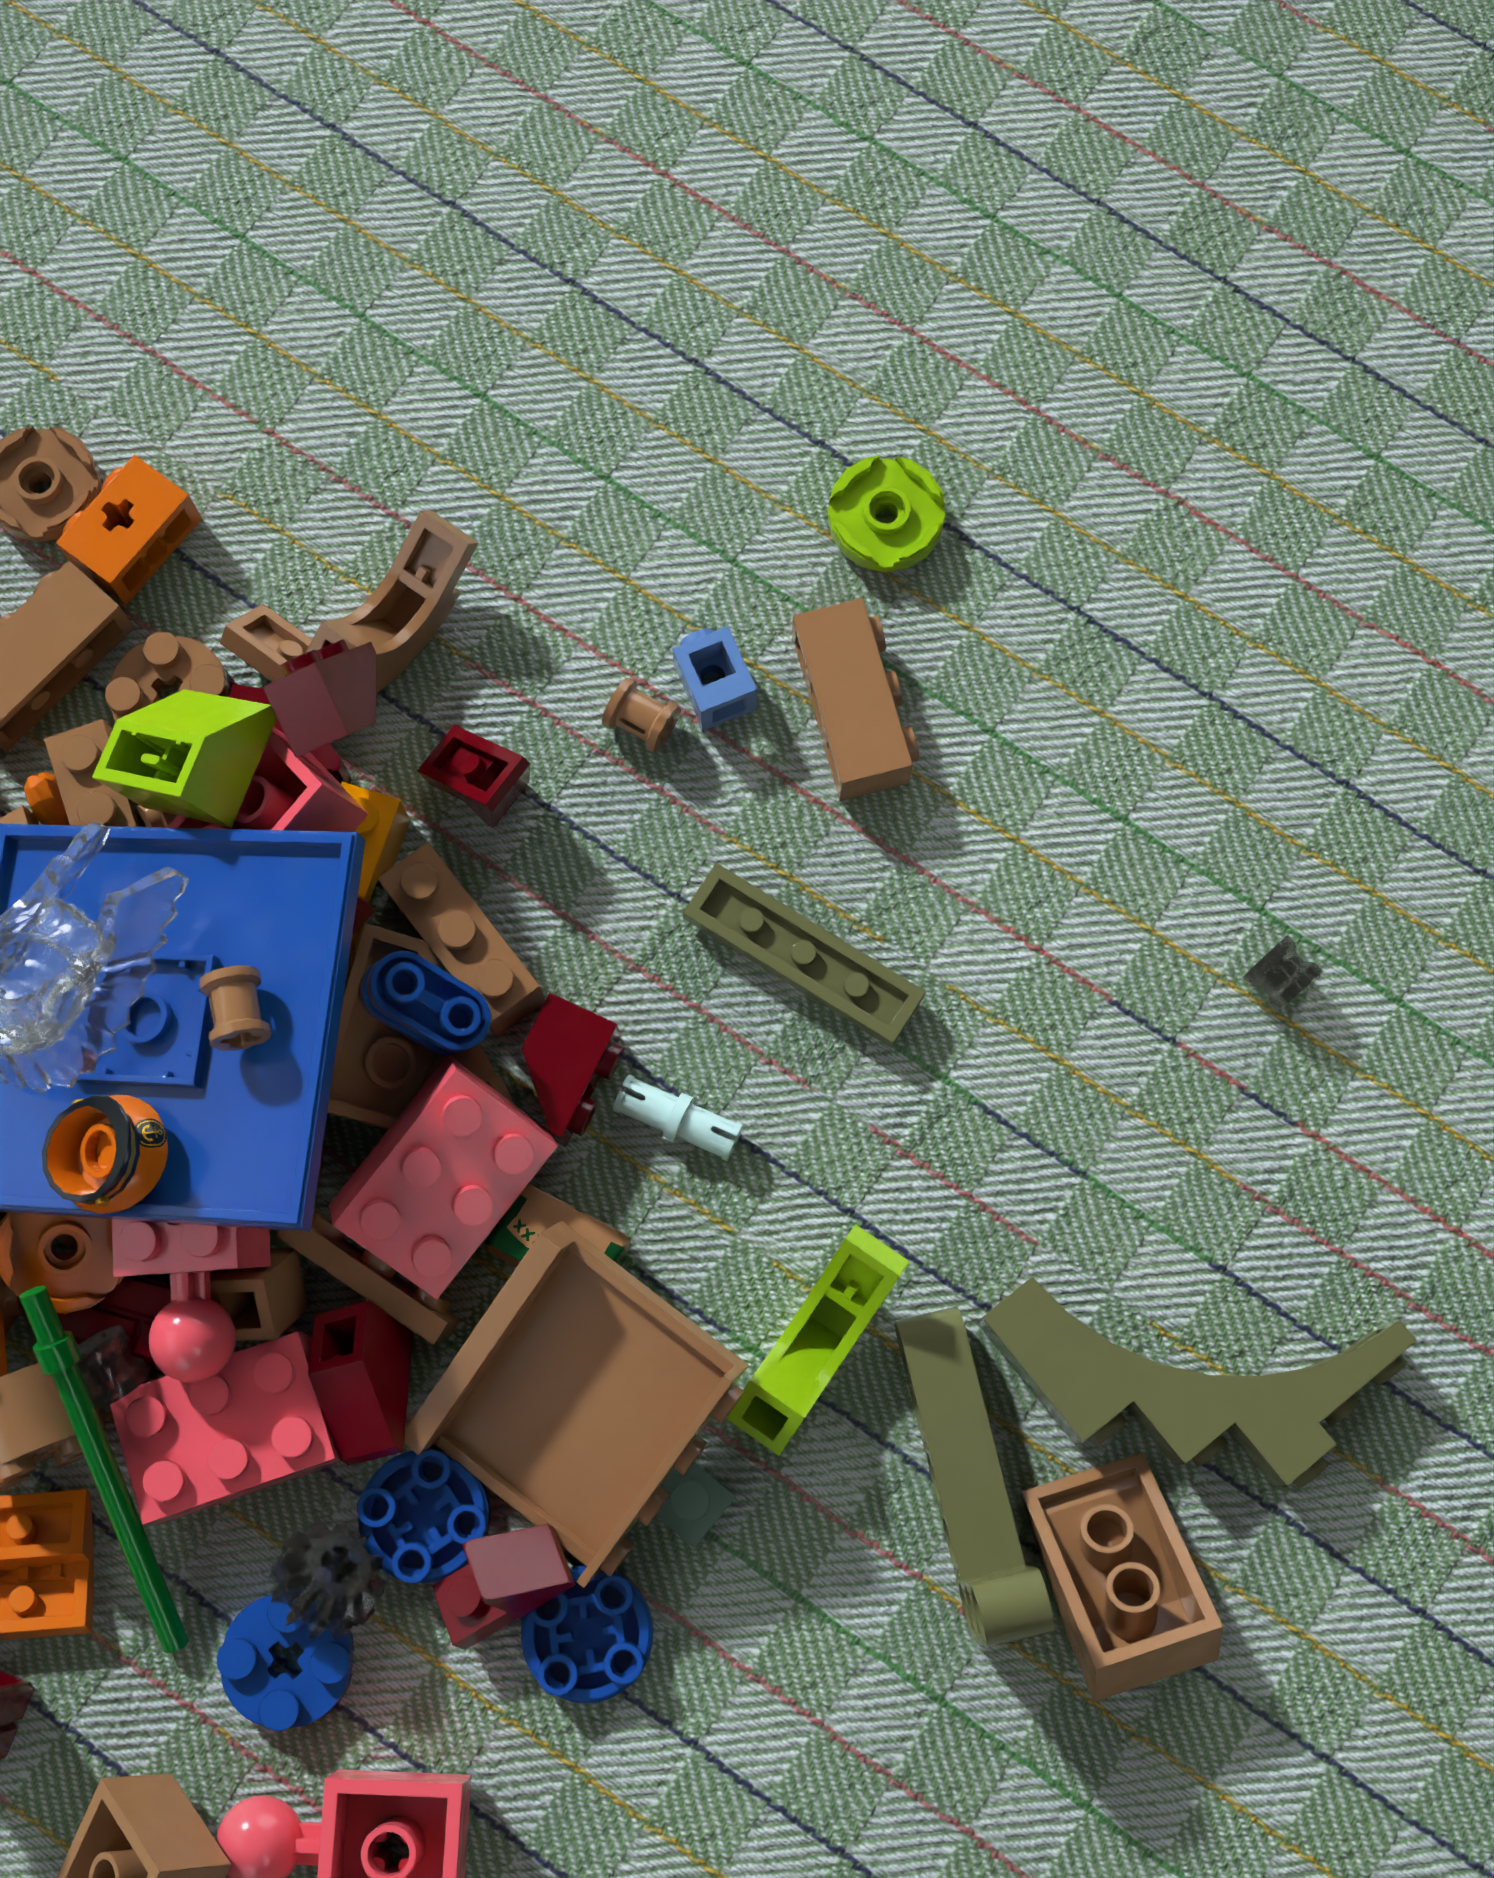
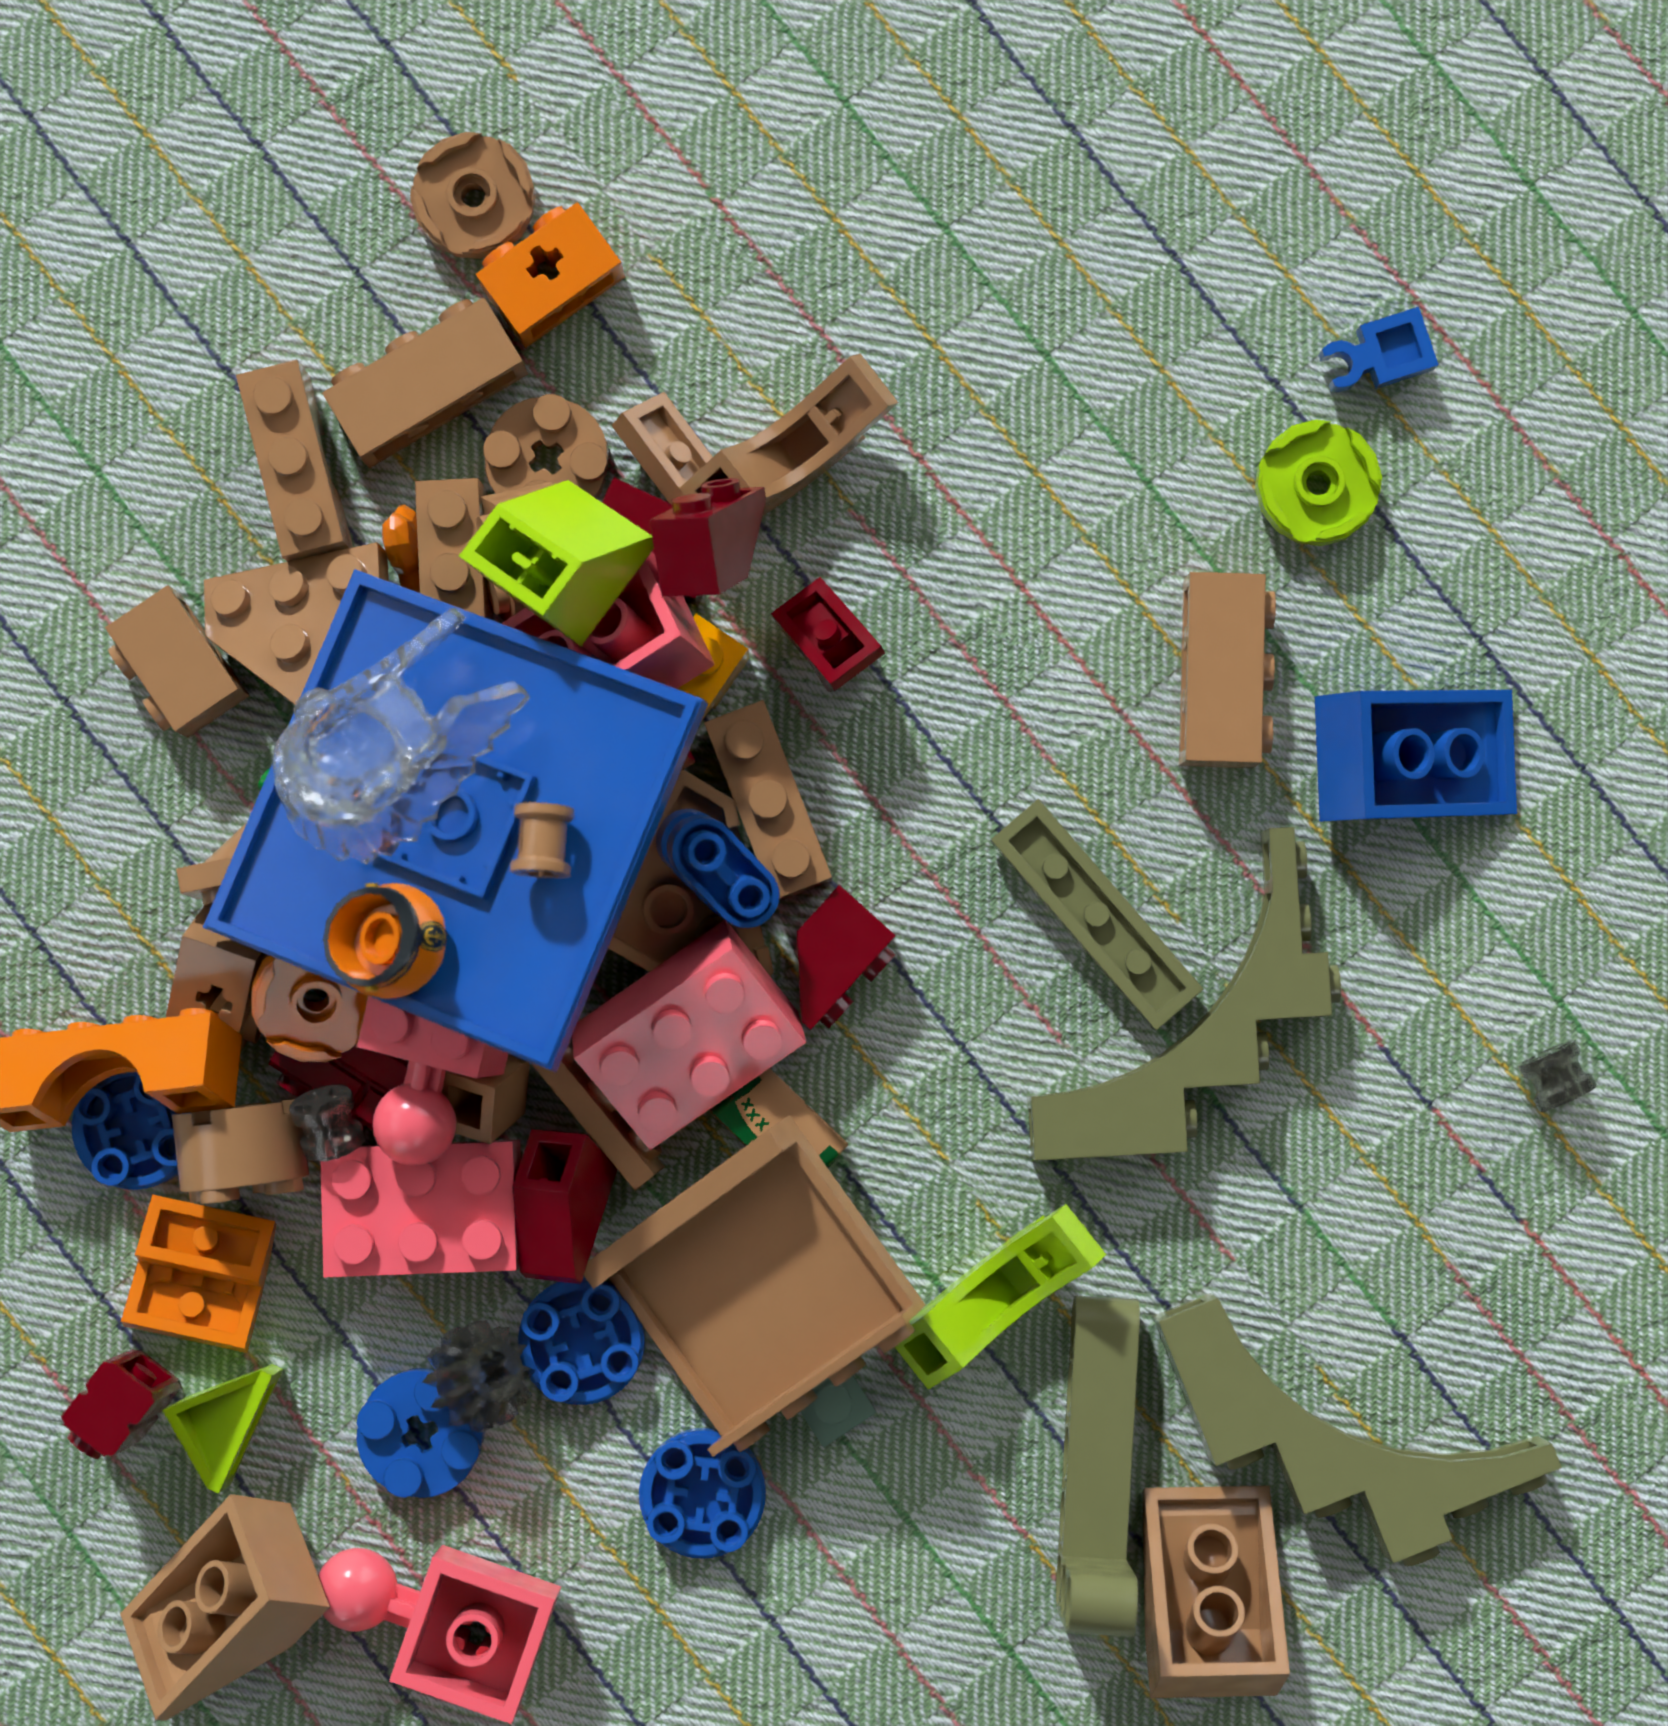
camera: 15 degrees right, 10 degrees up
(58, 1356) = (289, 1111): green bar -> none
(79, 1709) = (220, 1423): none -> lime slope
(502, 1582) = (638, 1427): dark red slope -> none
(640, 715) = (1008, 623): medium nougat bush -> none
(677, 1117) = (927, 1037): light aqua pin -> none
(717, 653) = (1109, 627): medium blue brick -> none
(905, 1118) = (1147, 1106): none -> olive arch
(911, 382) = (1388, 349): none -> blue plate
(1051, 722) = (1415, 754): none -> blue slope

